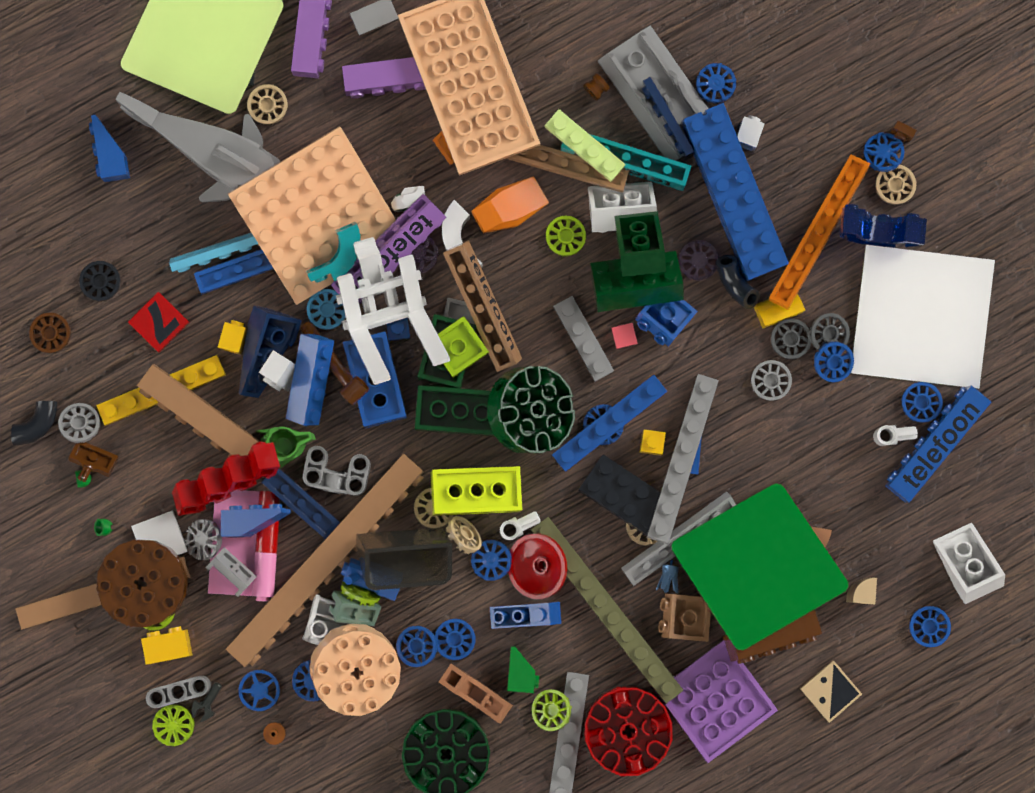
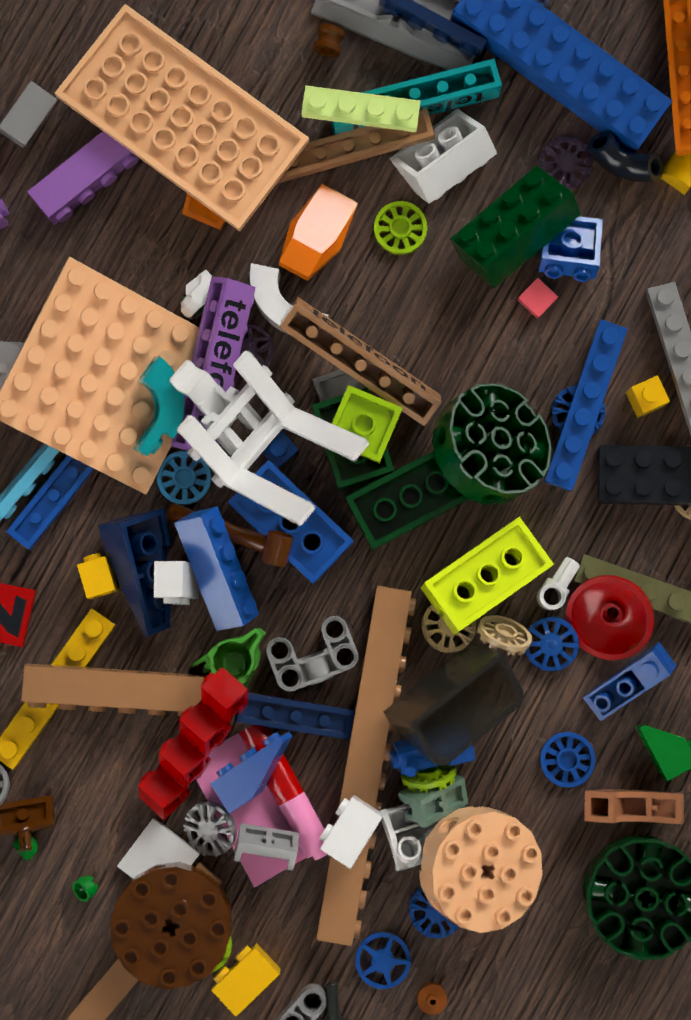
camera: 30 degrees left, 0 degrees up
(289, 595) = (351, 831): none -> white brick
(416, 646) = (530, 795): blue wheel -> none
(583, 338) = (494, 330): light grey plate -> none
(640, 244) = (496, 179): dark green brick -> none

